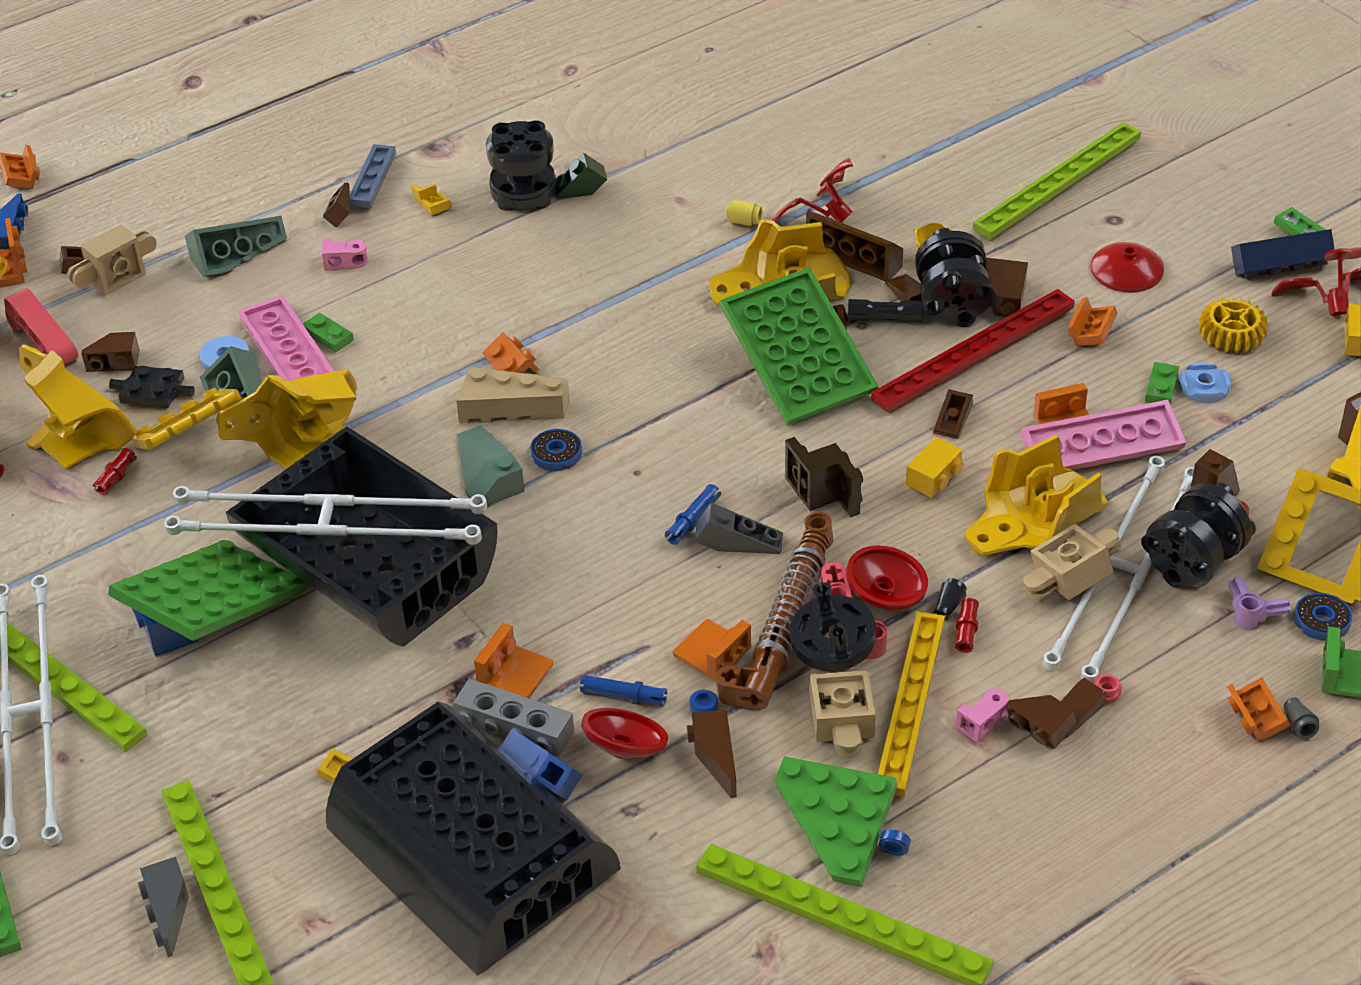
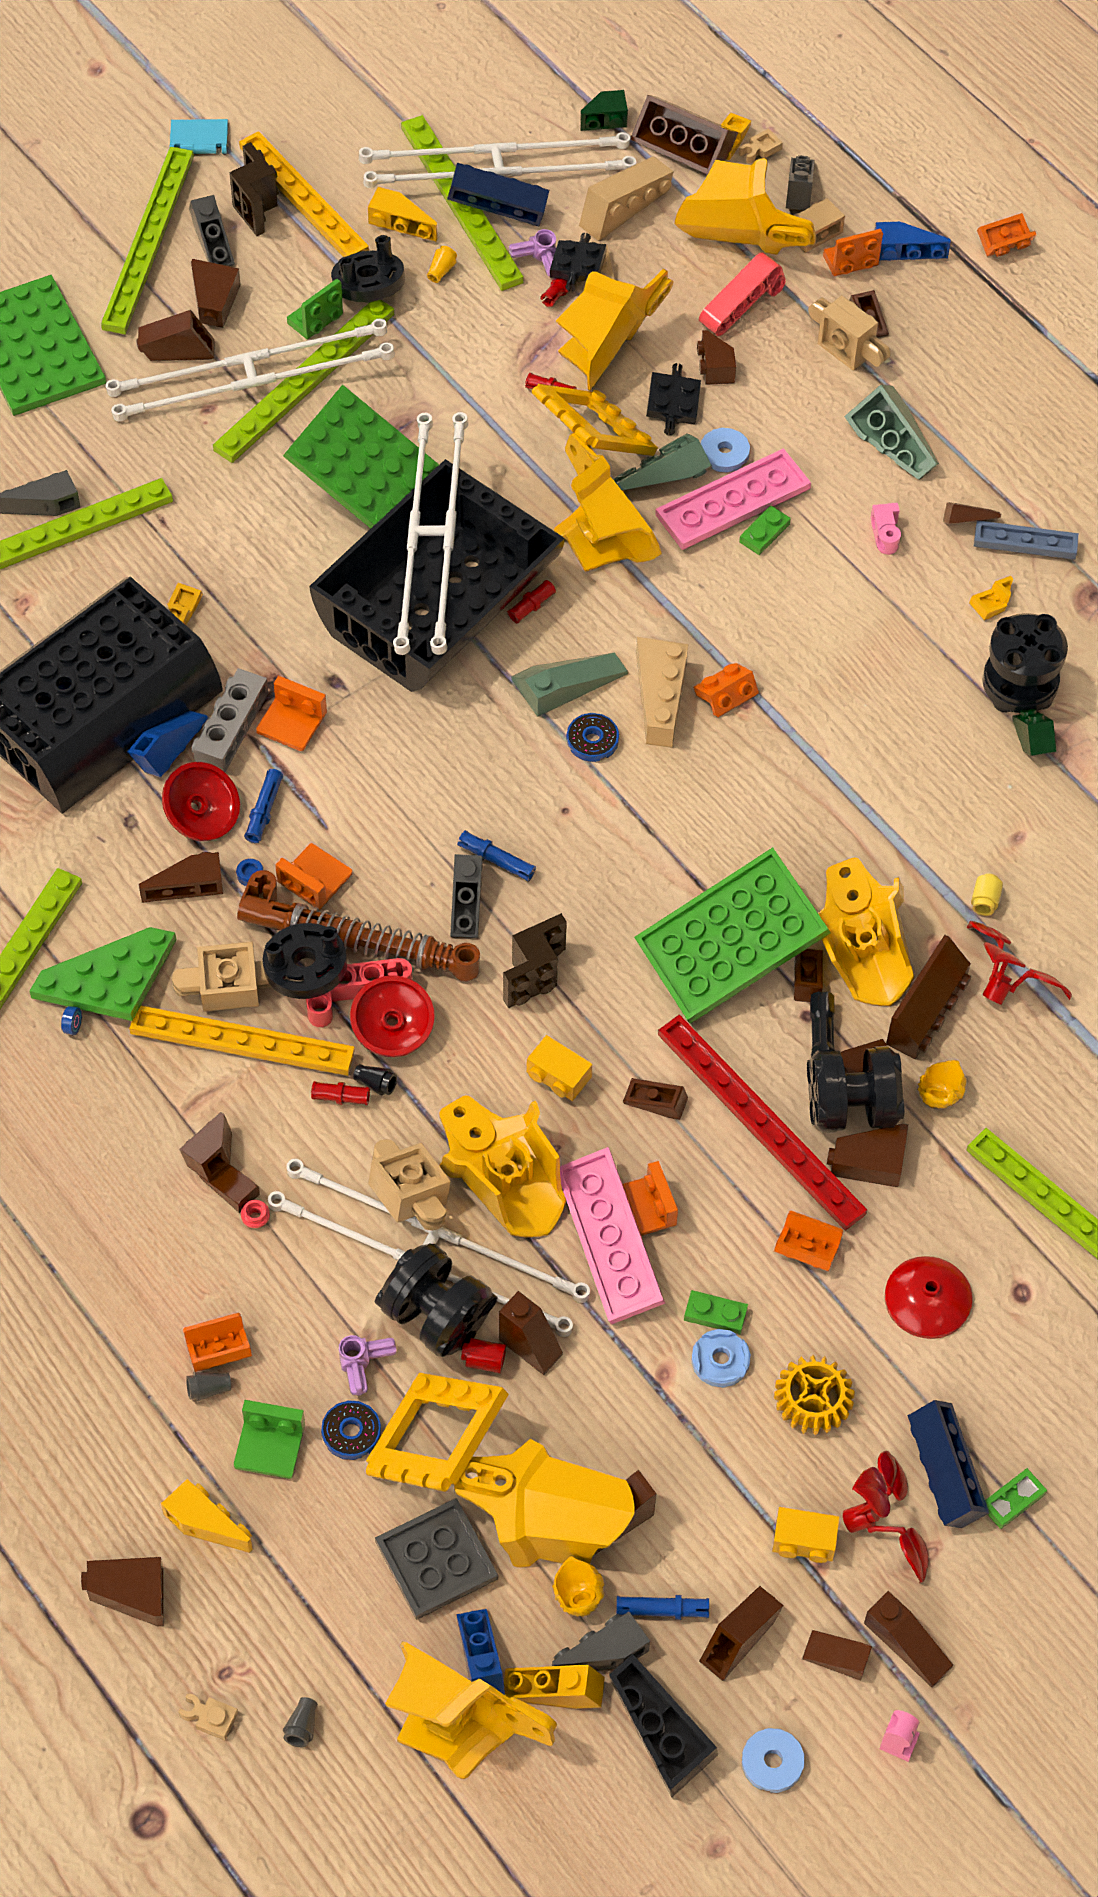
camera: 85 degrees right, 15 degrees up
(983, 716) = (217, 1099): bright pink leg -> none

